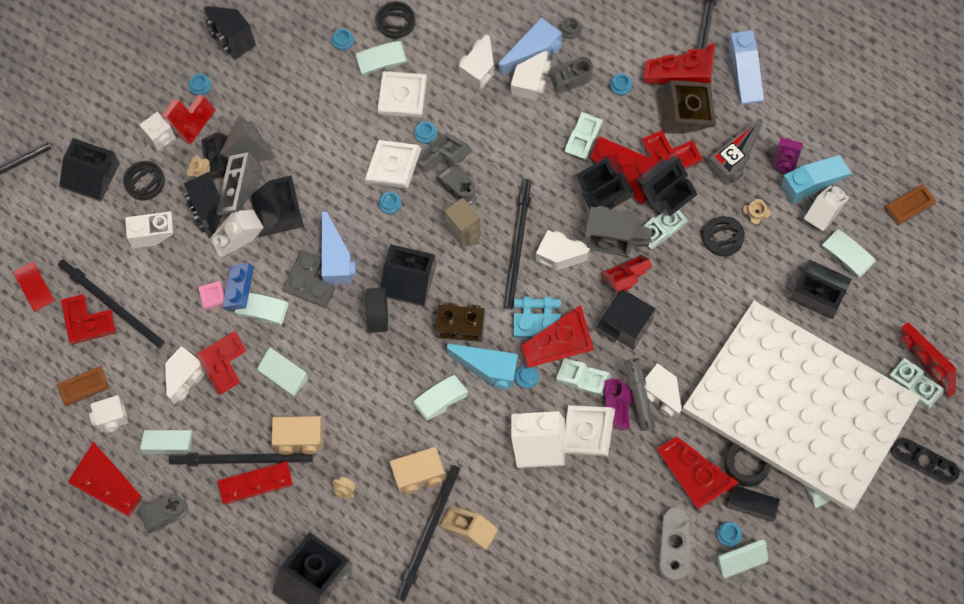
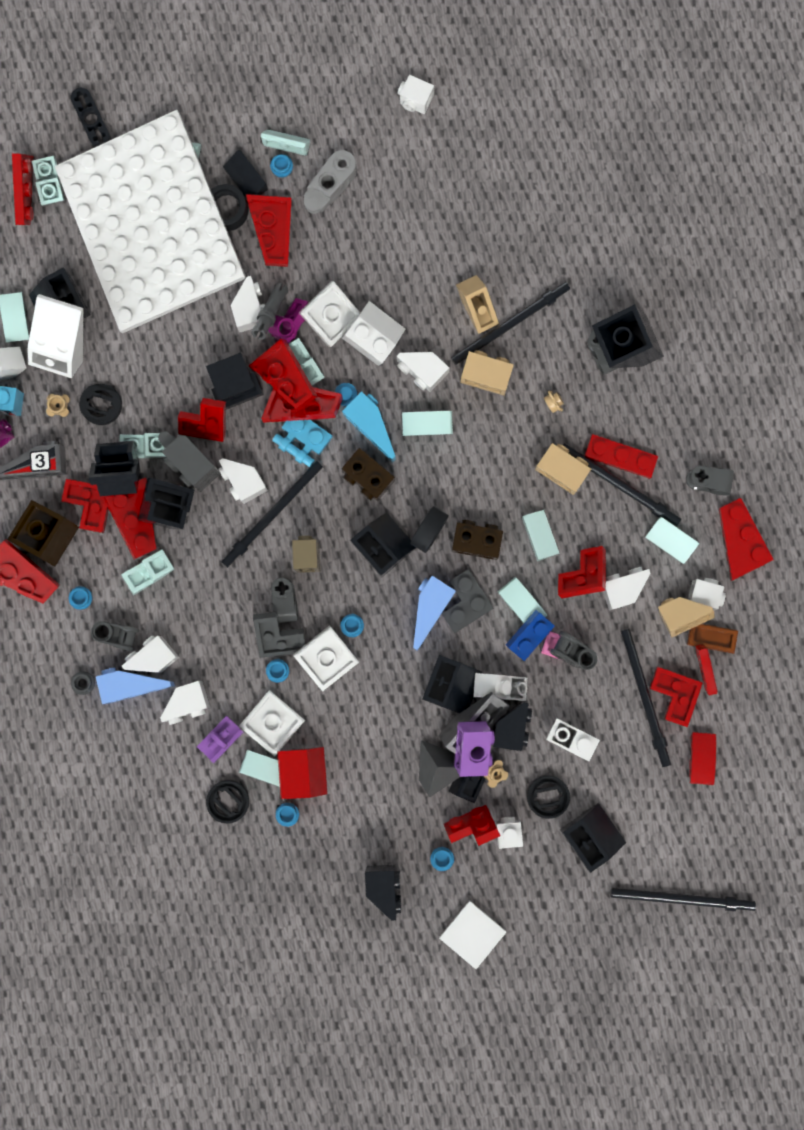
camera: 140 degrees left, 15 degrees up
(72, 352) = (706, 669): none -> red tile
(119, 381) = (683, 614): none -> tan slope
(140, 49) = (472, 934): none -> white tile
(195, 293) = (570, 650): none -> dark grey piece
(224, 163) = (468, 737): none -> medium lavender brick
(332, 331) = (477, 540): none -> dark brown brick
(350, 71) = (302, 773): none -> red slope
(432, 54) = (220, 739): none -> medium lavender hips
(476, 441) = (424, 367): none -> white slope
(590, 353) = (283, 372): none -> red wing
(796, 251) = (56, 337): none -> white slope

